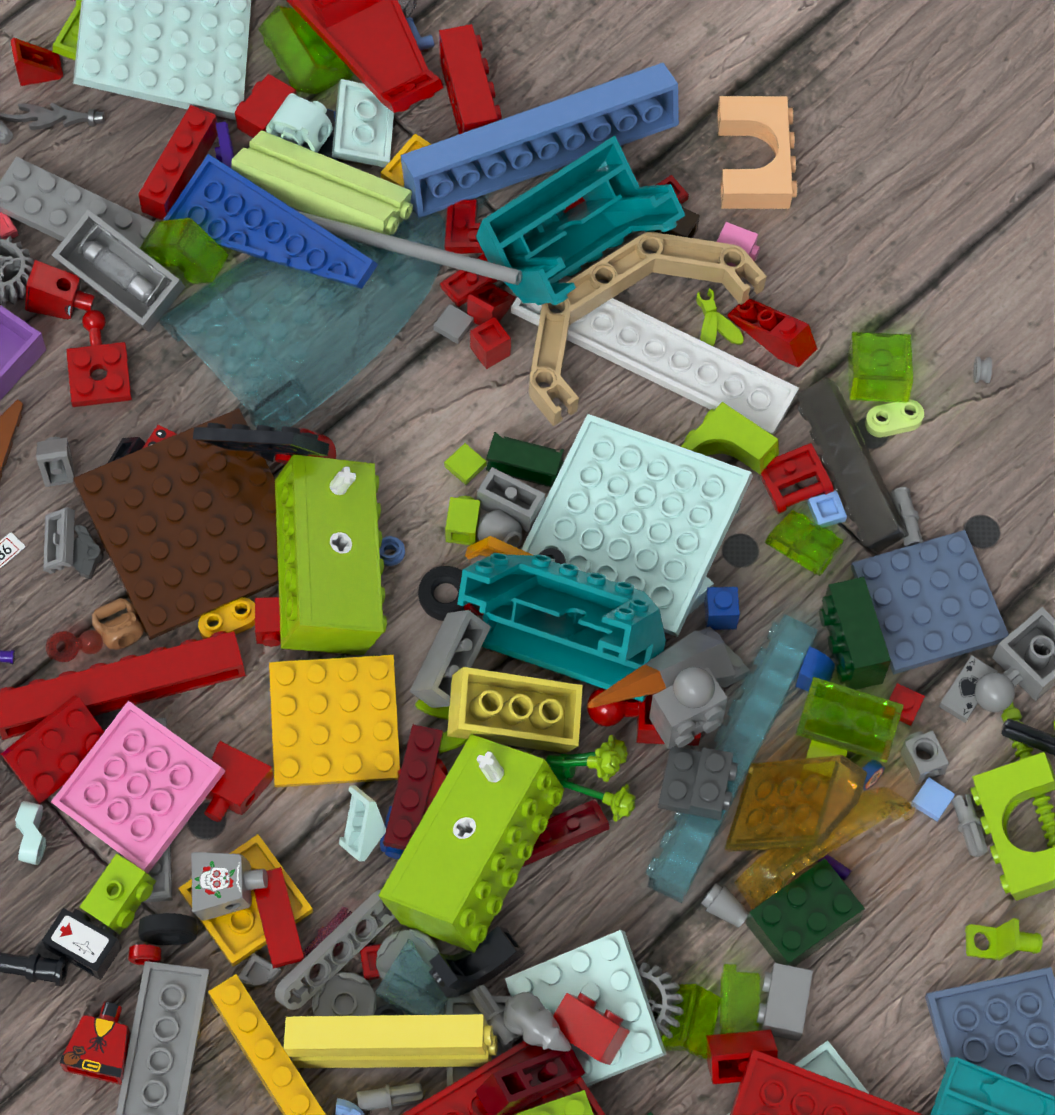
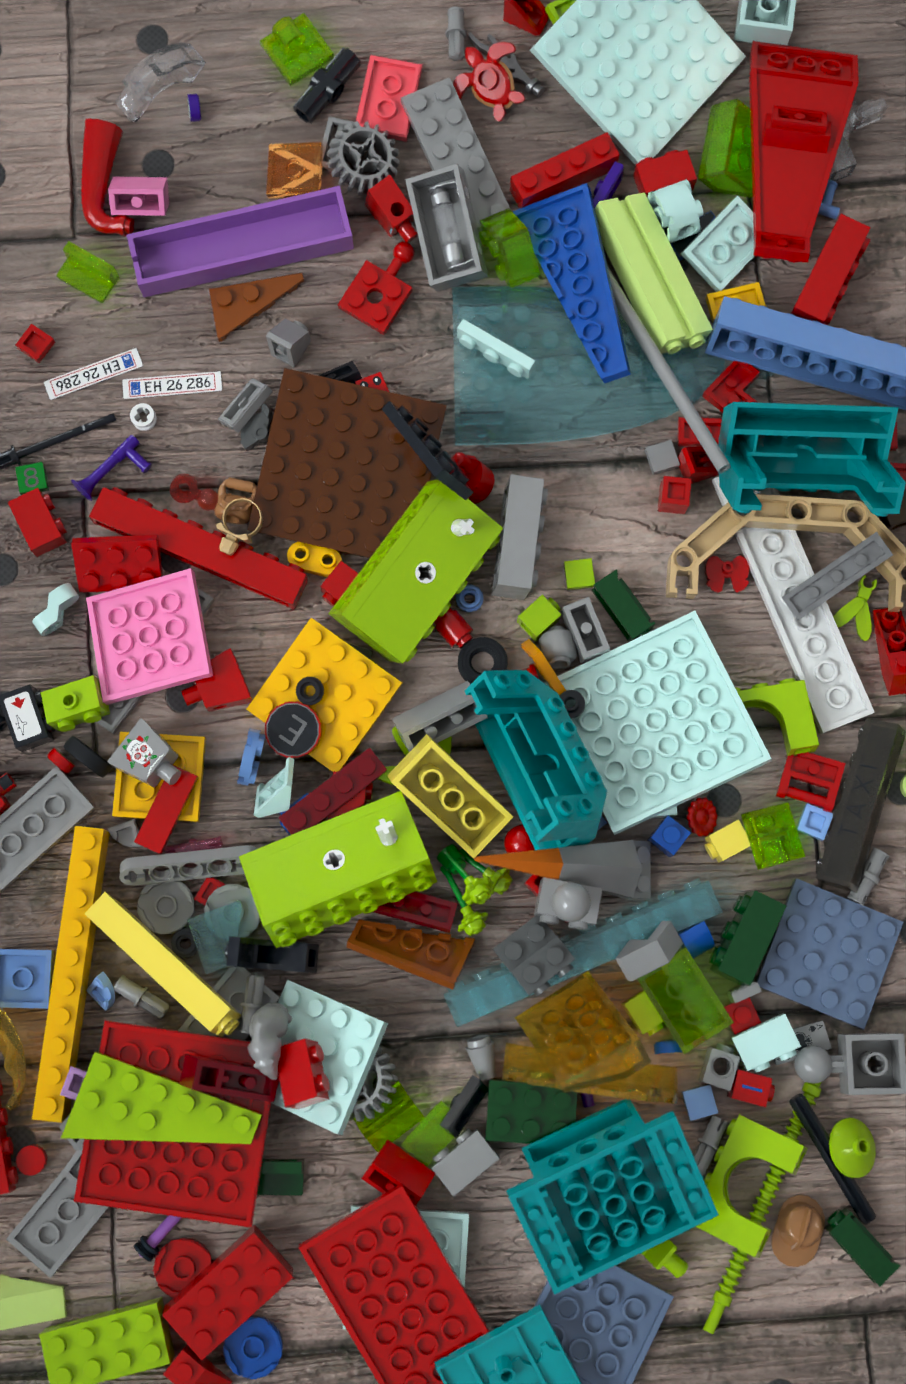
camera: 40 degrees right, 15 degrees up
(53, 134) = (490, 79): none -> animal
(144, 648) = (229, 543): none -> tan piece
(245, 330) = (495, 349): none -> light aqua plate
(313, 713) = (301, 690): none -> black plate
(314, 816) = (249, 766): none -> medium blue plate
(332, 765) = (293, 729): none -> black tile
(400, 583) = (454, 628): none -> red brick
(403, 482) = (518, 543): none -> light grey brick
(578, 375) = (717, 571): none -> red piece
(607, 861) = (422, 954): none -> dark orange wing
(677, 302) = (837, 576): none -> flat silver plate
(734, 573) = (702, 816): none -> red piece
(746, 956) = (463, 1106): none -> black plate
(772, 576) = (727, 841): none -> light yellow brick
(789, 704) = (644, 956): none -> light grey slope
(890, 681) = (743, 992): none -> light grey tile
(926, 906) = (608, 1192): none -> teal wedge
(942, 704) = (766, 1042): none -> light aqua brick
(964, 751) = (752, 1088): none -> red brick

